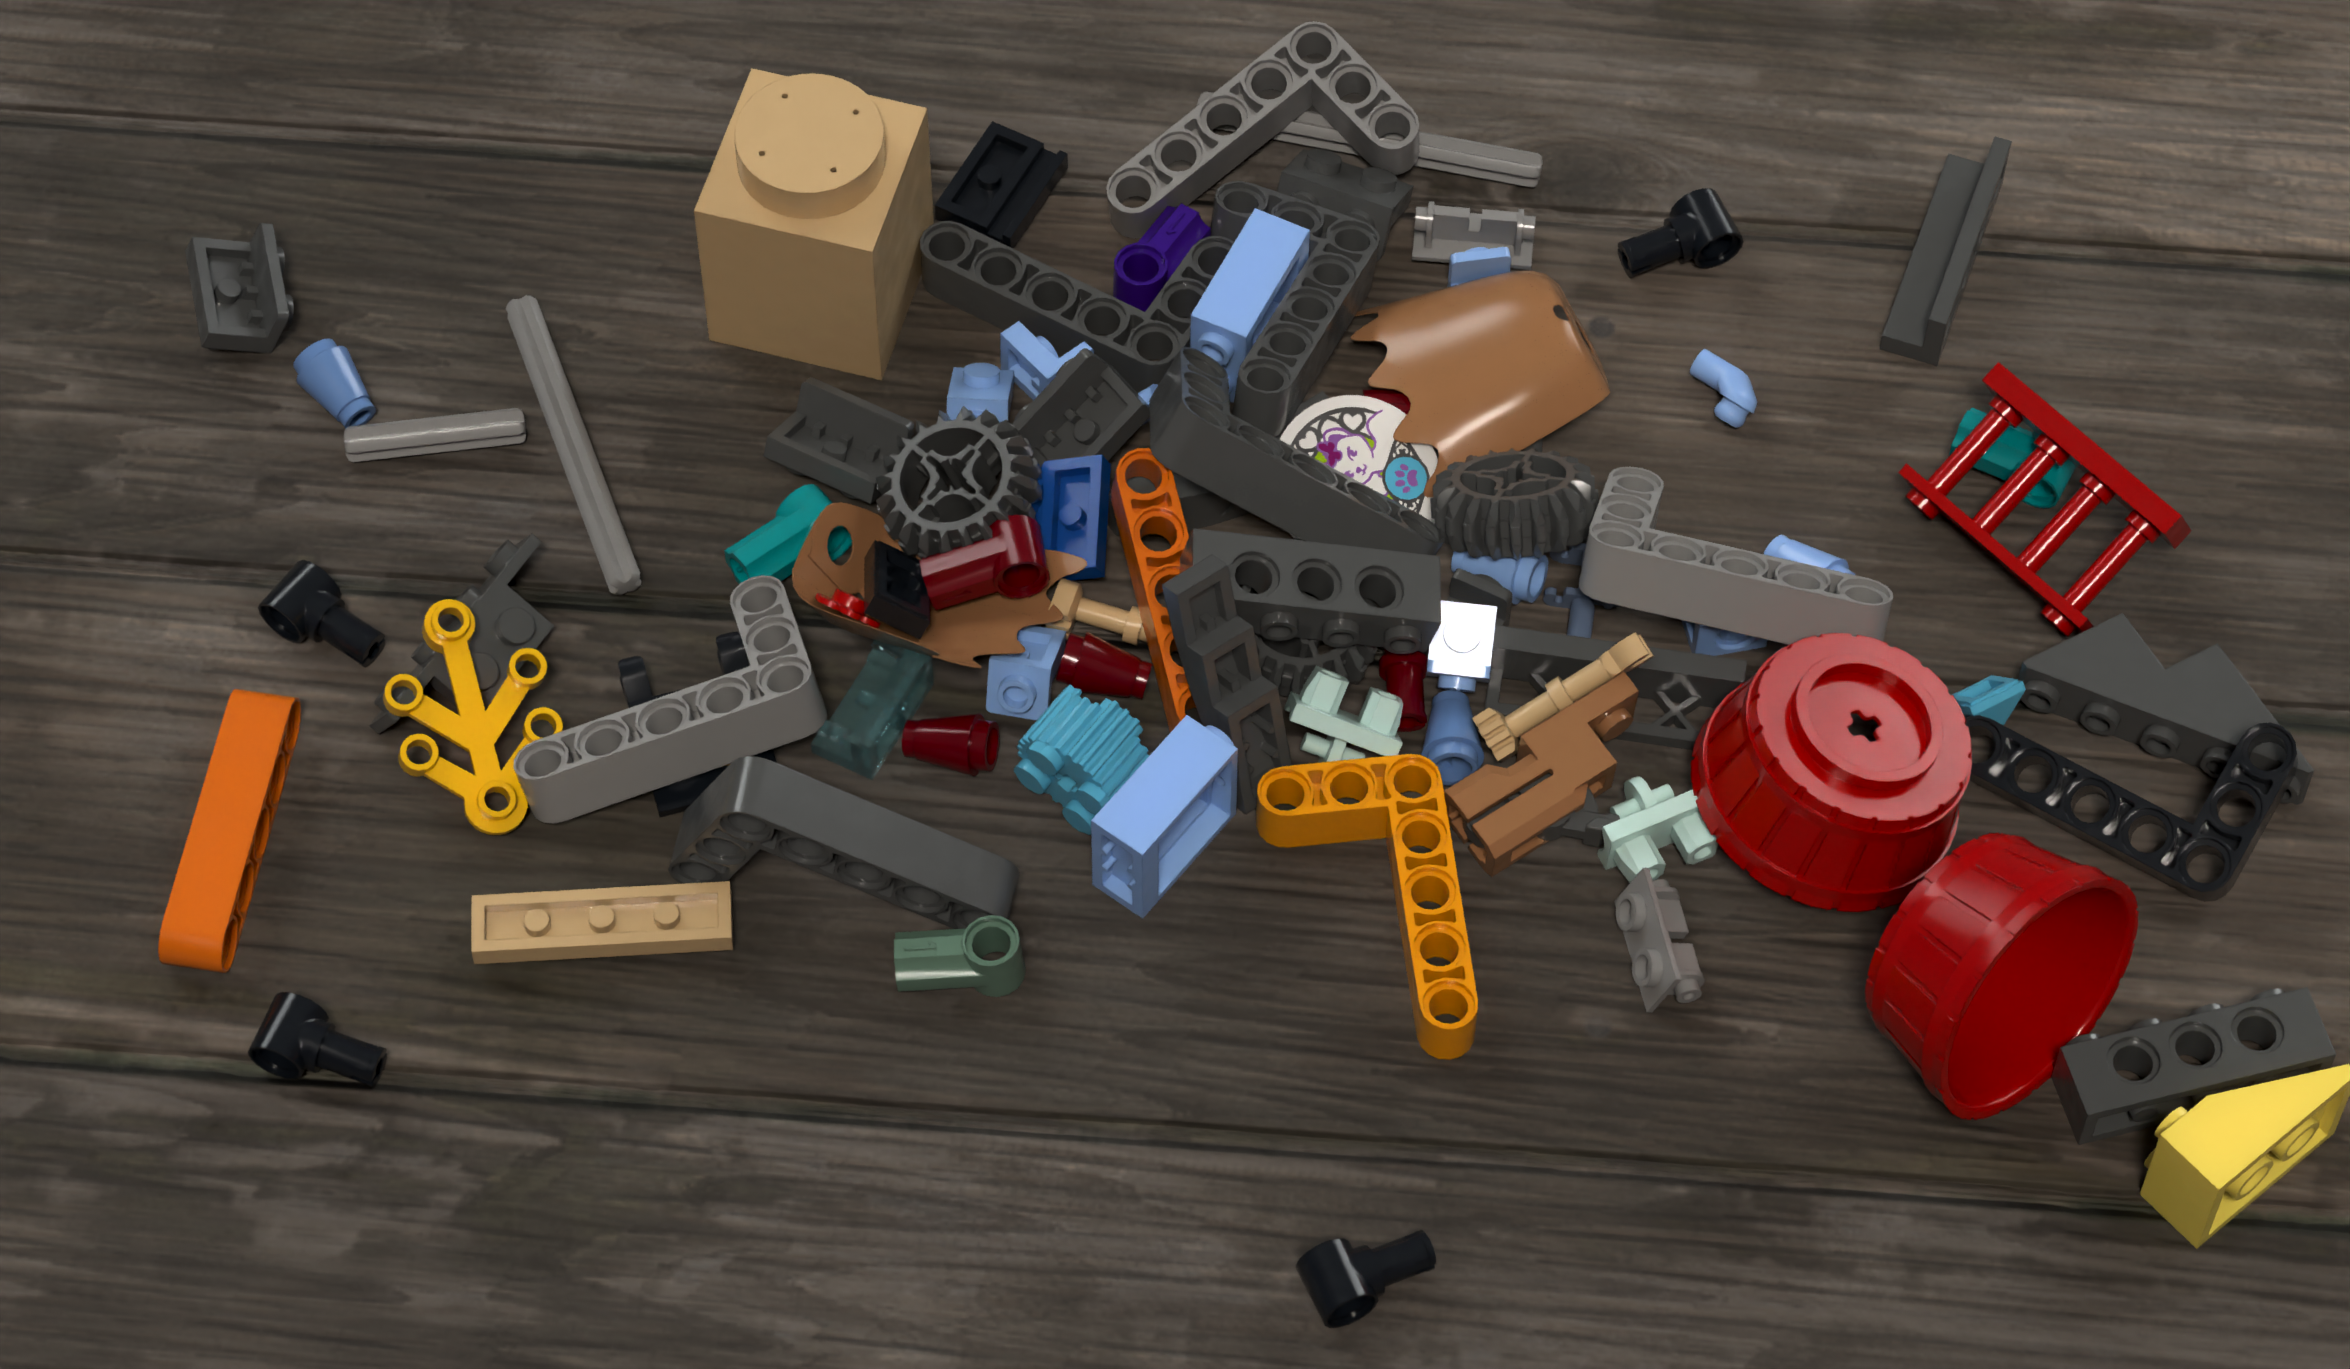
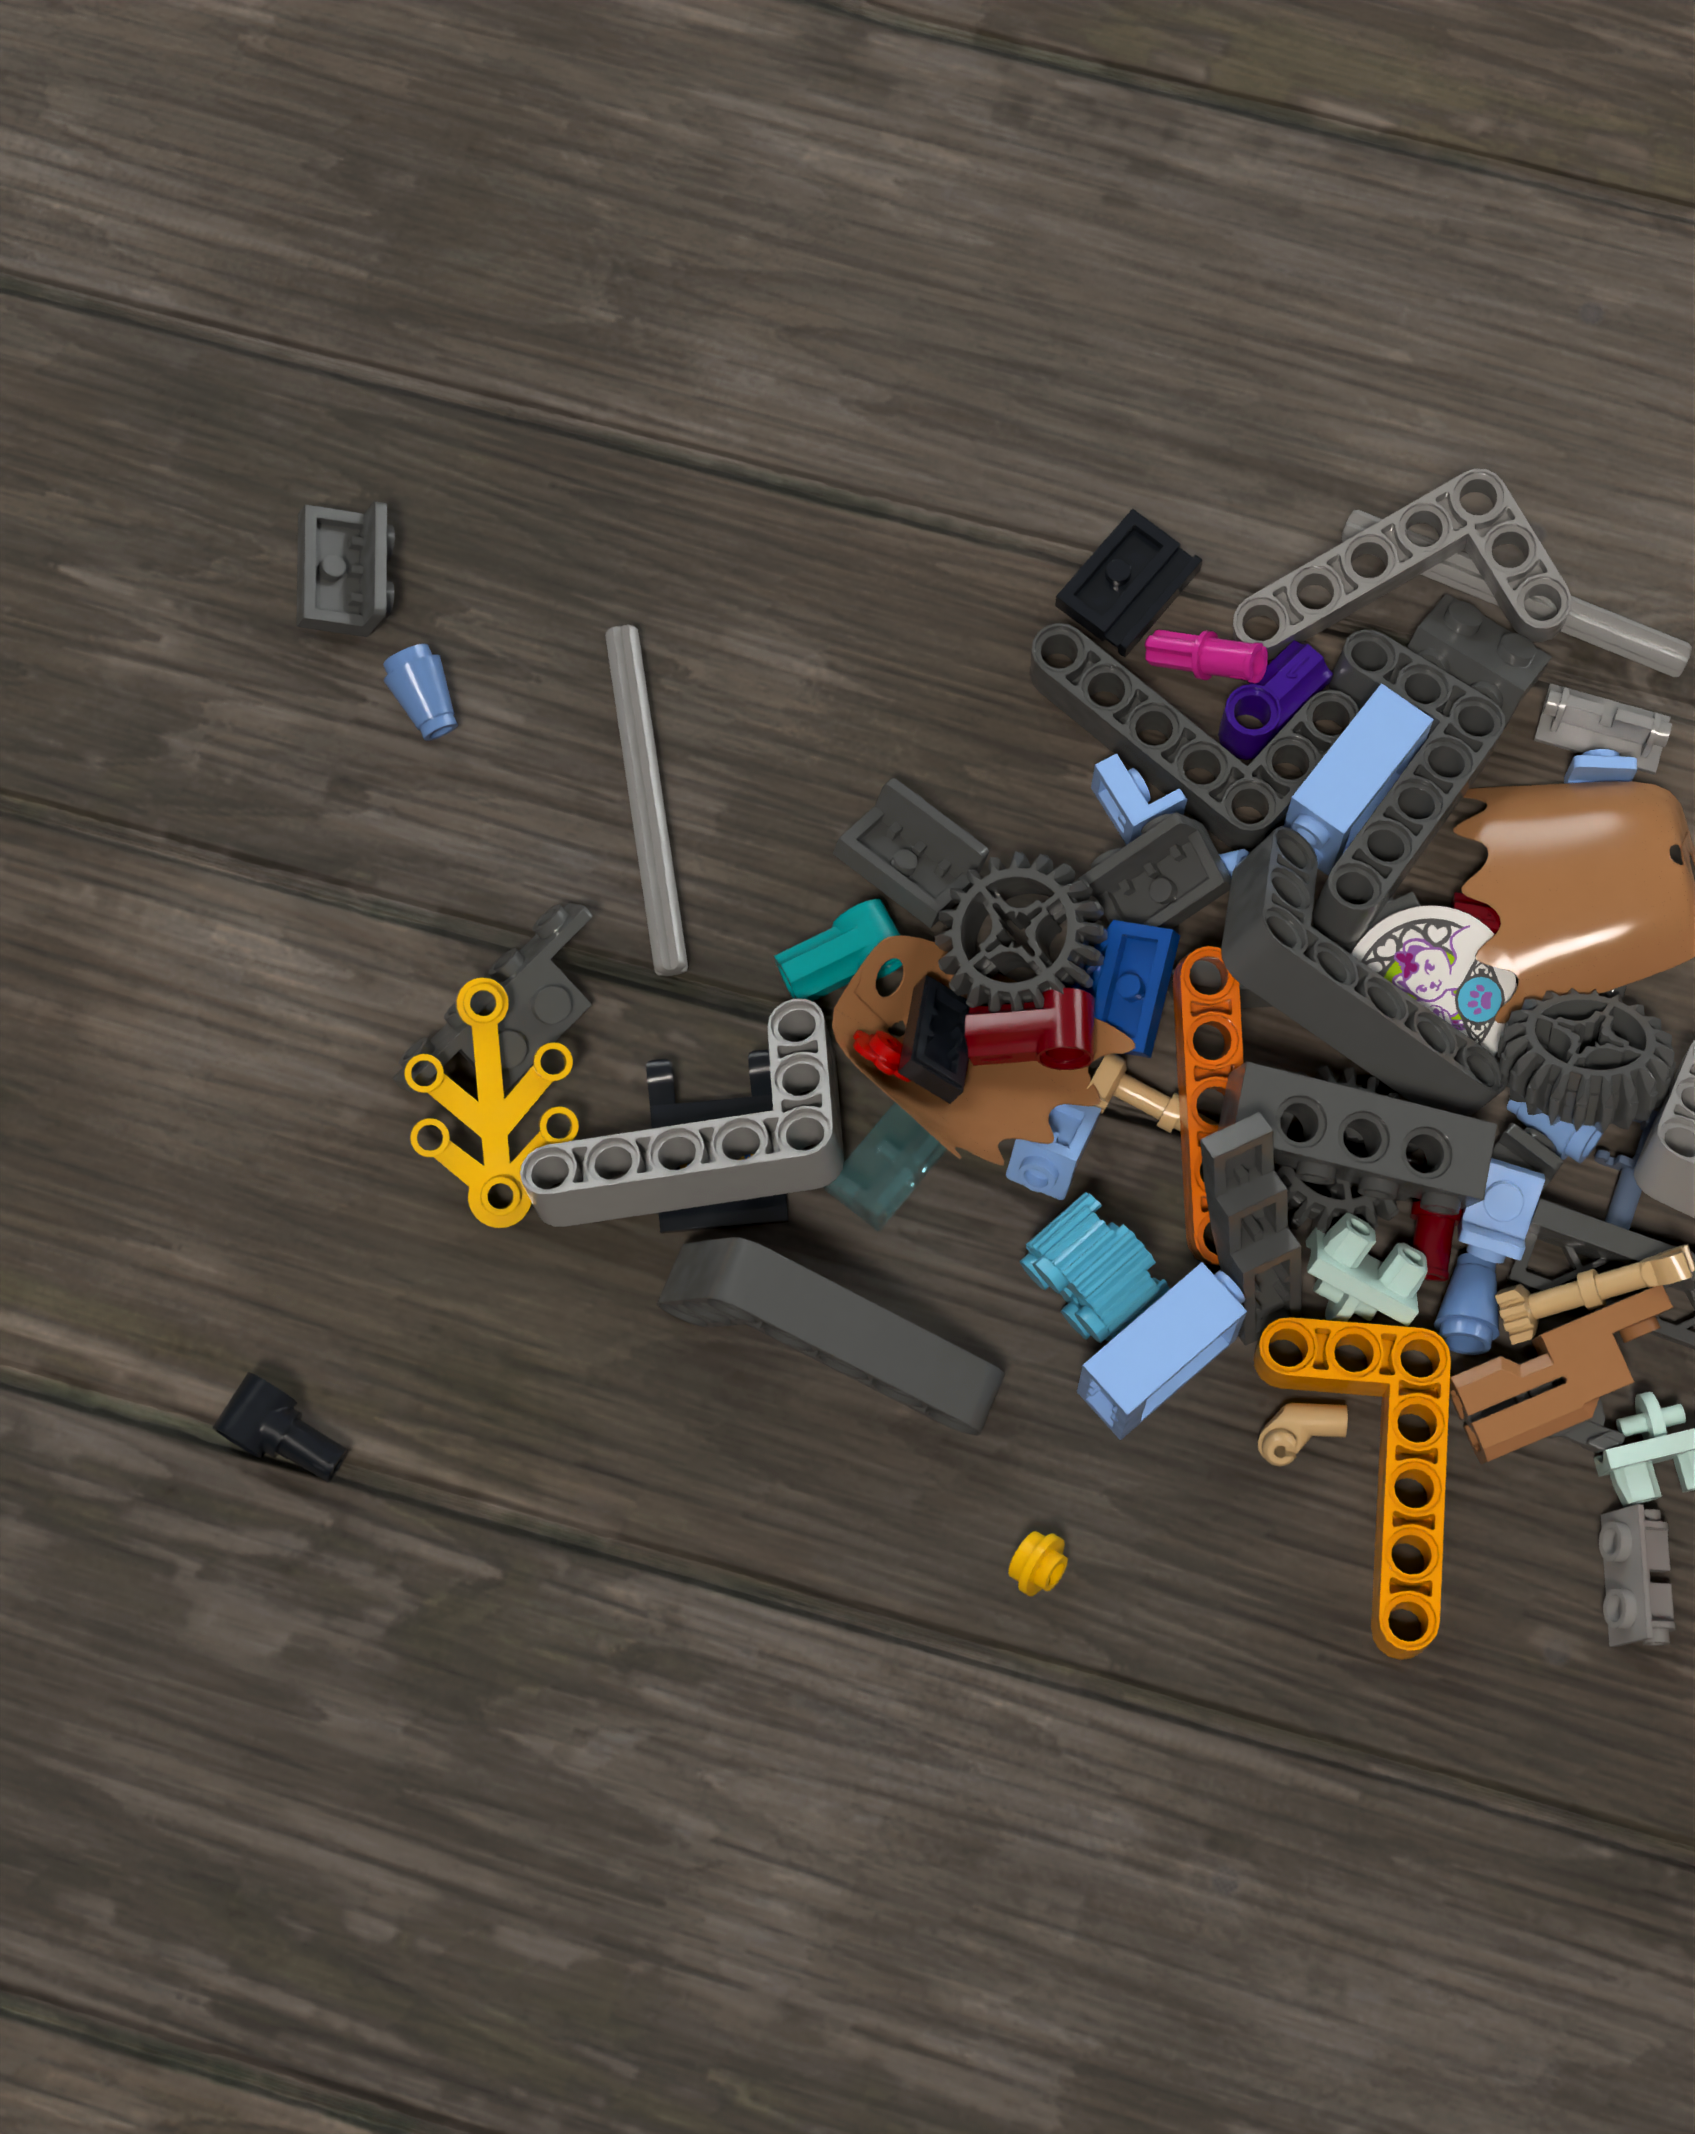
camera: 15 degrees right, 15 degrees up
(229, 831) = (235, 1176): orange beam -> none
(311, 606) = (354, 940): black pin -> none
(435, 435) = (511, 764): light grey axle -> none
(601, 922) = (582, 1348): tan plate -> none
(815, 222) = (877, 623): tan container -> none
(953, 742) = (965, 1213): dark red cone -> none
(955, 958) = (918, 1459): sand green piece -> none
(980, 388) = (1062, 826): light blue bracket -> none
(1084, 1028) = (1038, 1563): none -> yellow plate
(1088, 231) = (1207, 655): none -> dark pink axle
(1102, 668) = (1129, 1157): dark red cone -> none
(1309, 870) = (1295, 1425): none -> tan arm
(1349, 1280) = (1251, 1894): black pin -> none

